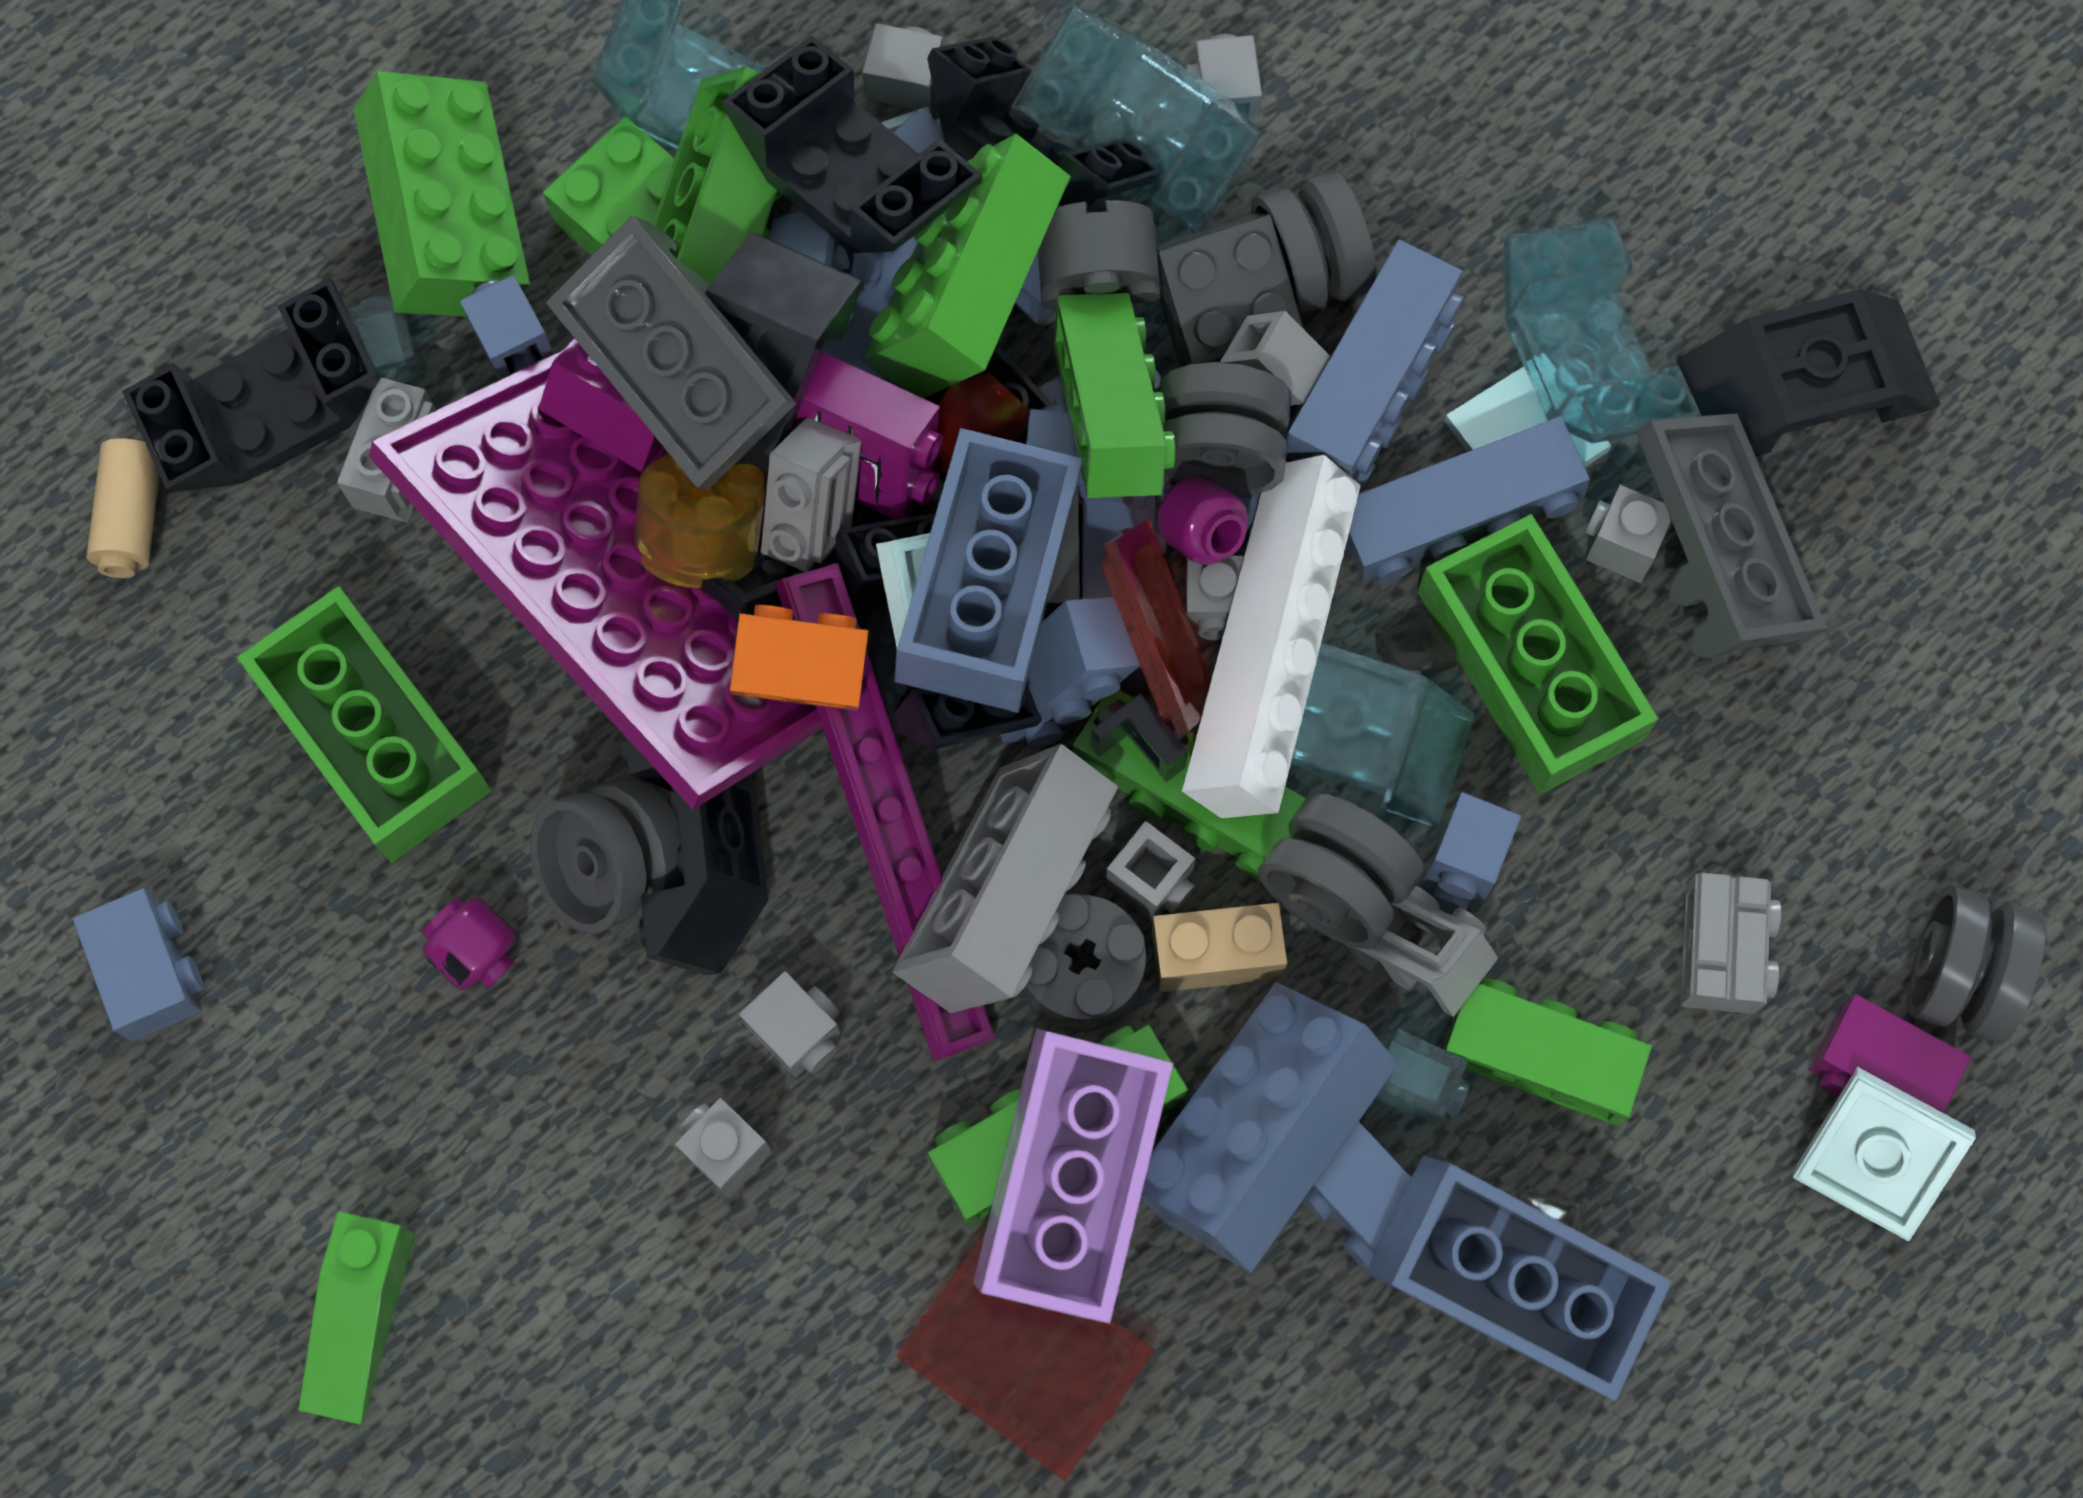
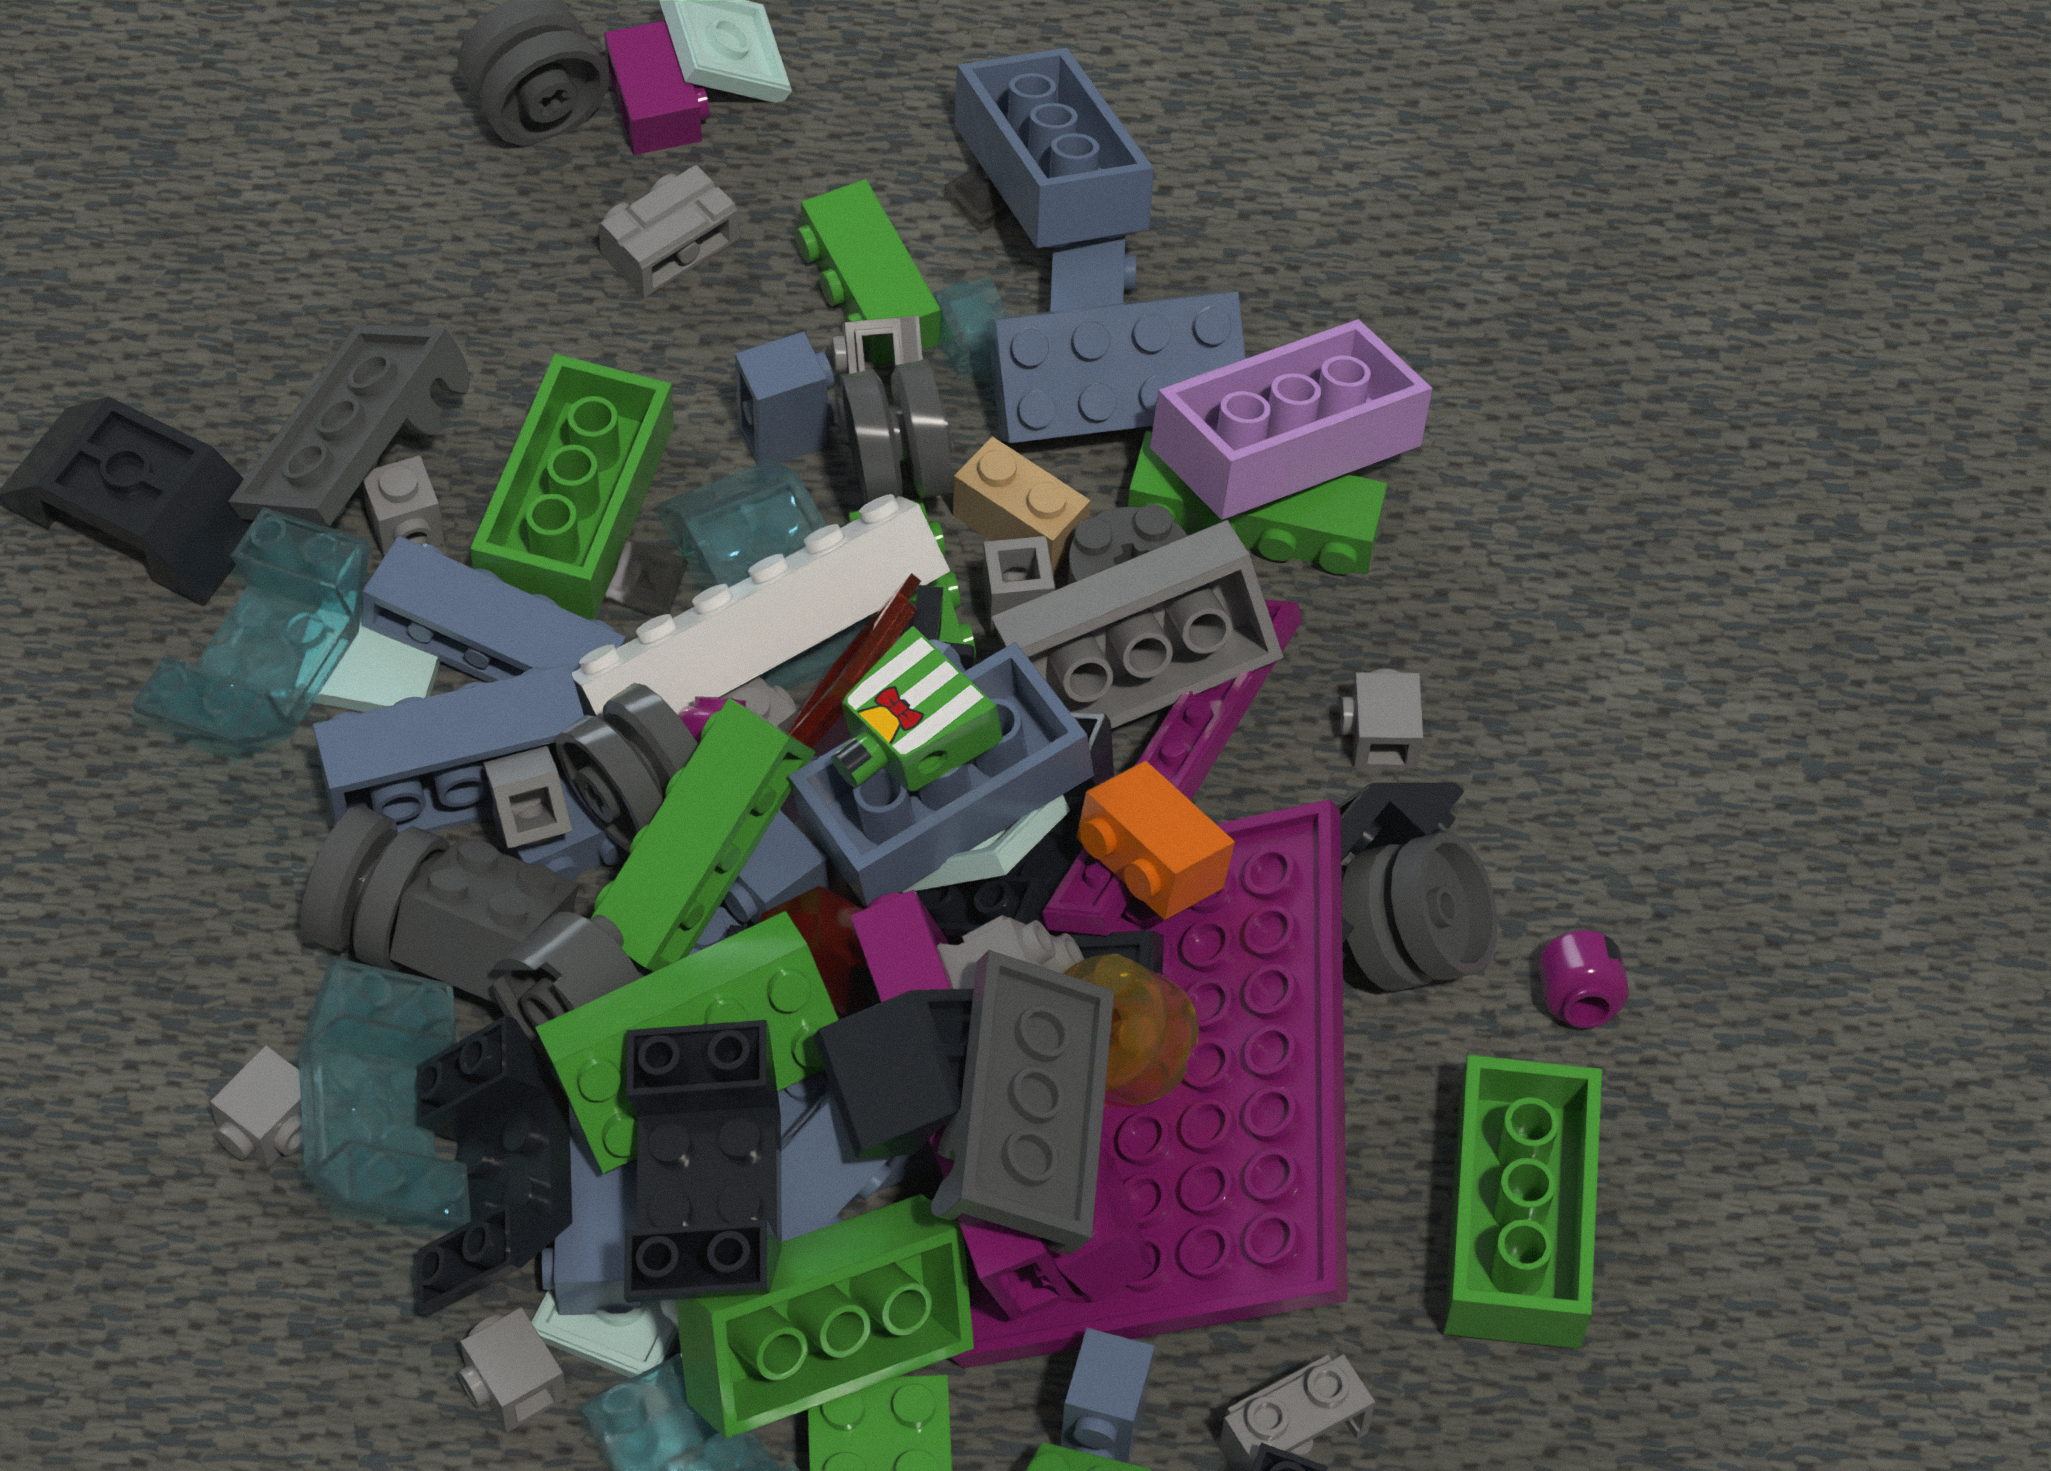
camera: 140 degrees left, 15 degrees down
(139, 964) = (1868, 1185): sand blue brick -> none
(353, 1315) = (1888, 808): bright green slope -> none
(722, 1145) = (1516, 678): light grey brick -> none
(1023, 543) = (914, 717): none -> torso
(1025, 1368) = (1462, 427): clear red piece -> none

